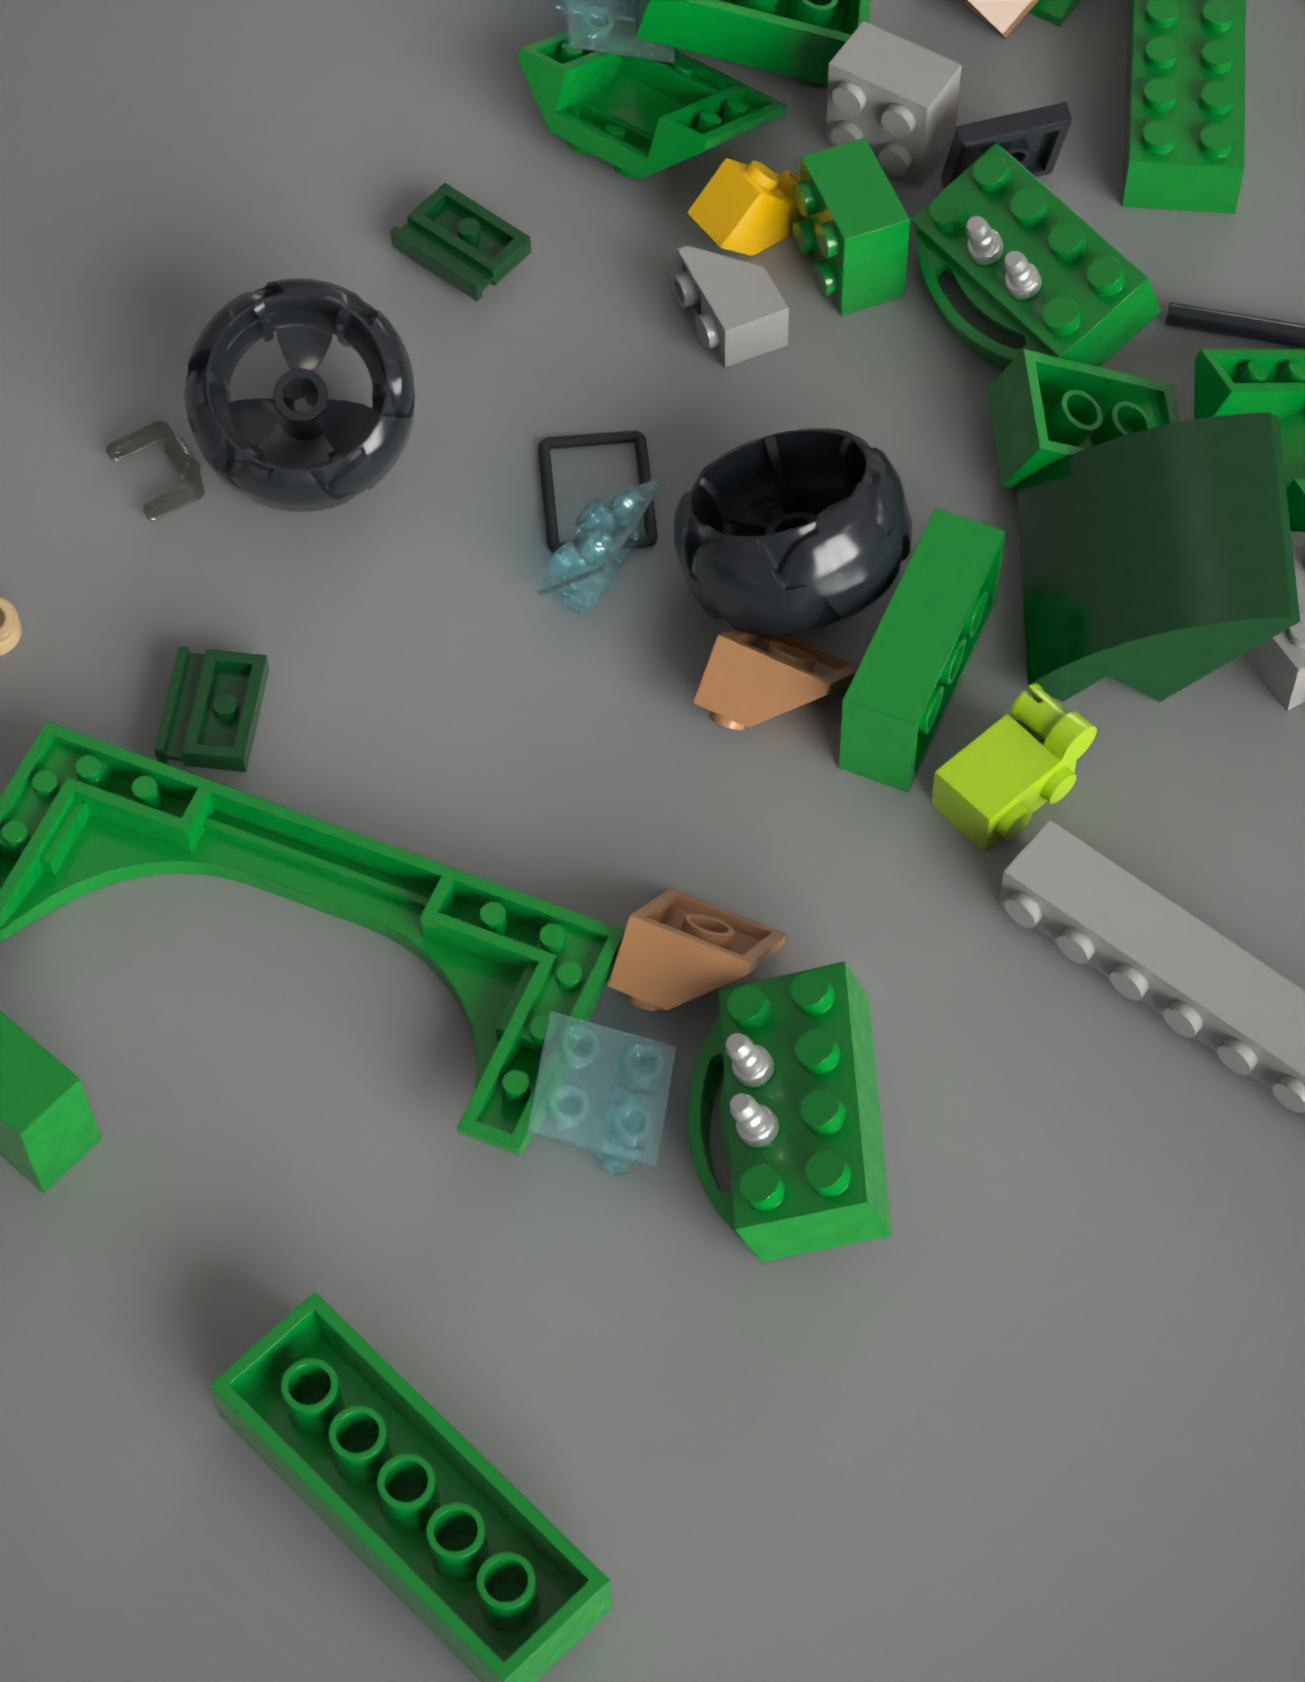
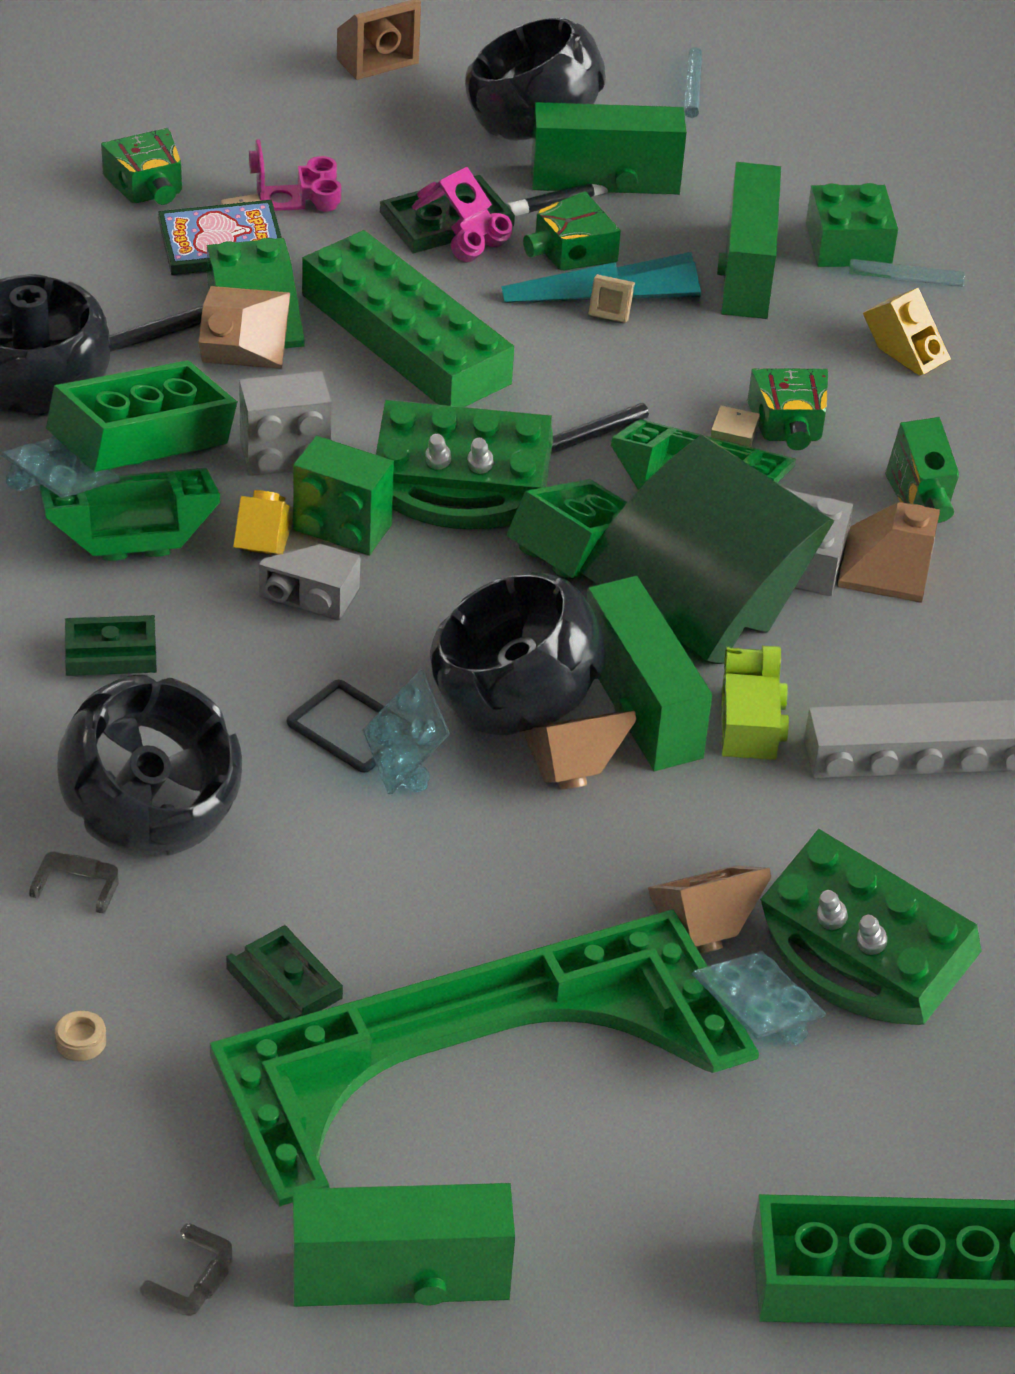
camera: 50 degrees left, 15 degrees down
(1028, 136) = (369, 411): black tile -> none

